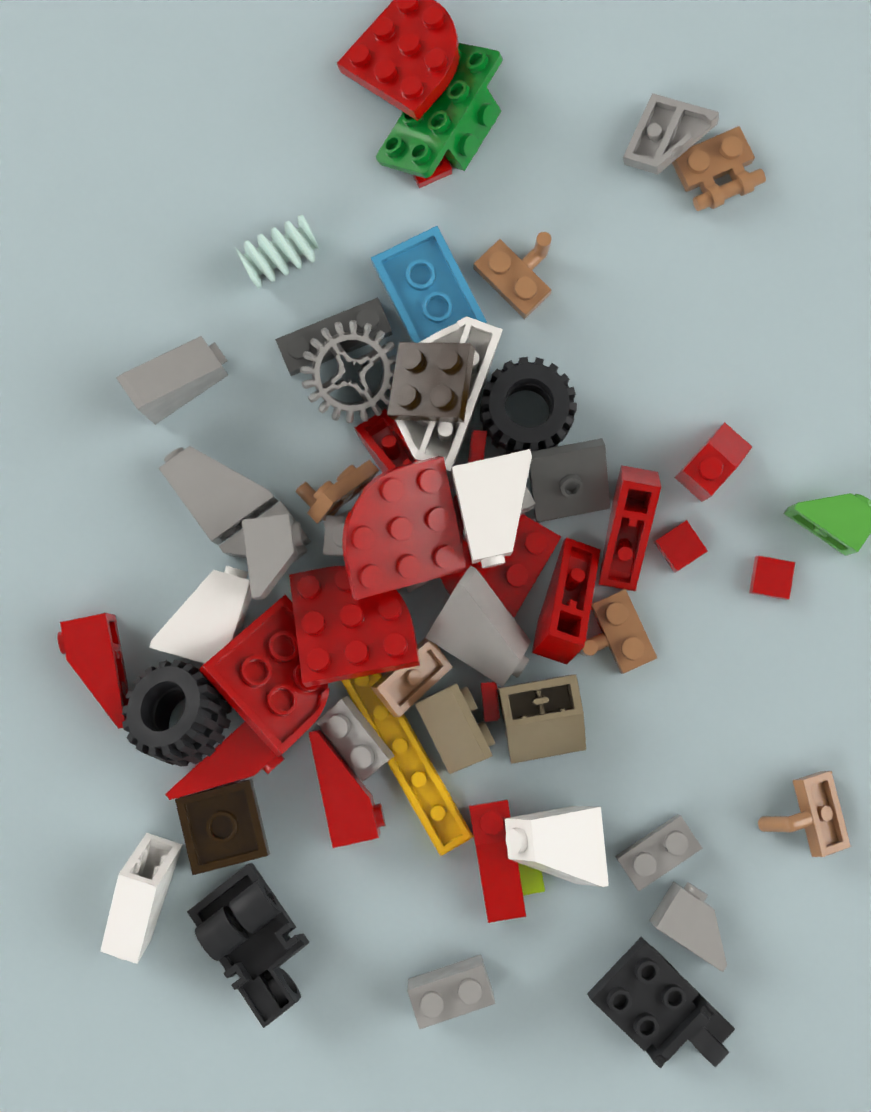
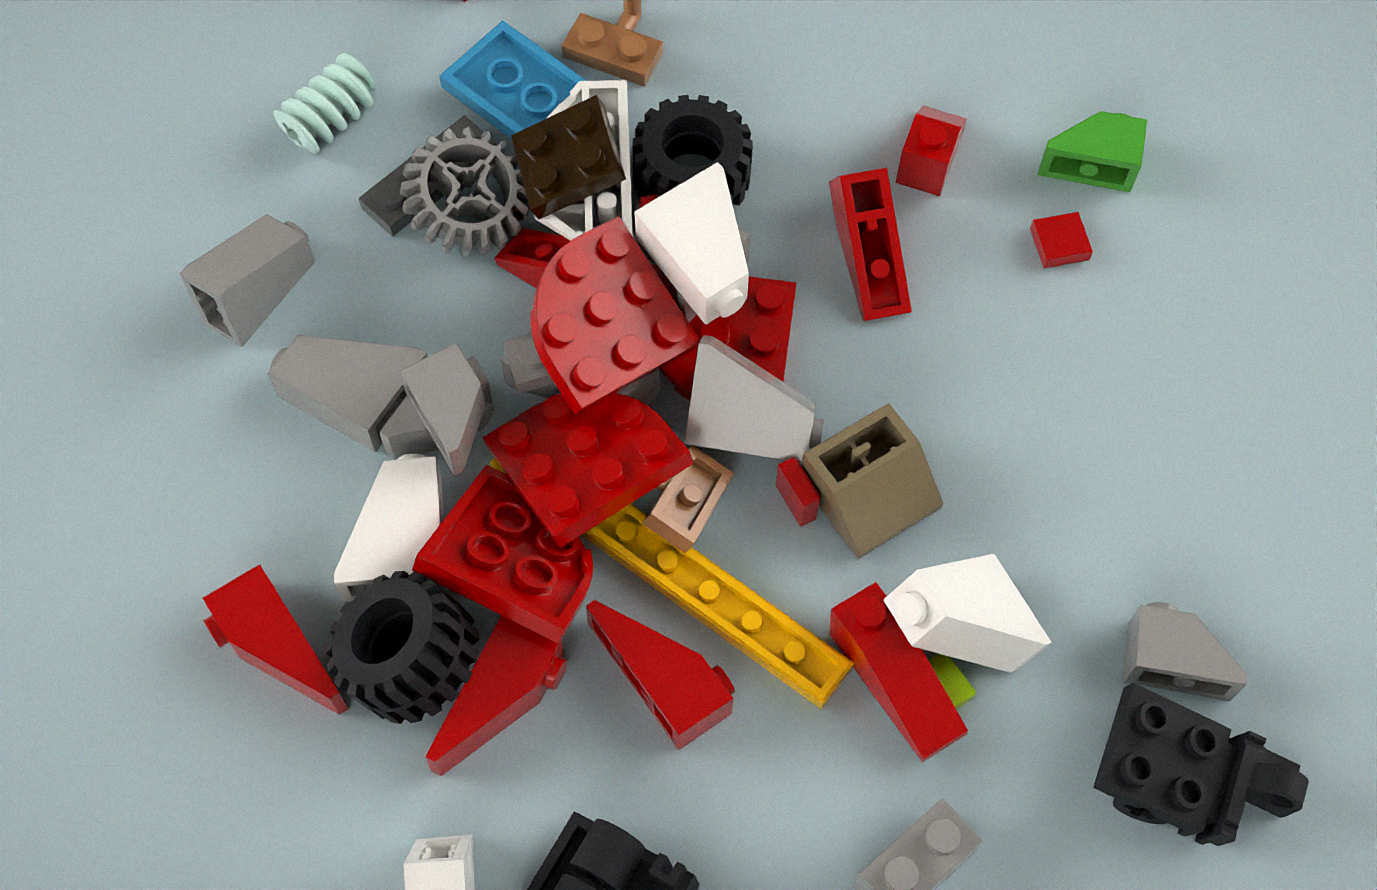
camera: 25 degrees left, 20 degrees down
(222, 826) = (518, 781): dark brown plate -> none
(331, 496) = (500, 321): medium nougat plate -> none
(355, 738) = (649, 600): light grey plate -> none
(454, 728) = (770, 528): dark tan slope -> none
(567, 603) = (840, 350): red slope -> none
(569, 480) = (780, 213): dark grey plate -> none
(620, 632) = (916, 360): medium nougat plate -> none
(658, 852) = (1091, 592): light grey plate -> none
(680, 546) = (939, 245): red tile -> none
(818, 814) = (1254, 462): medium nougat plate -> none

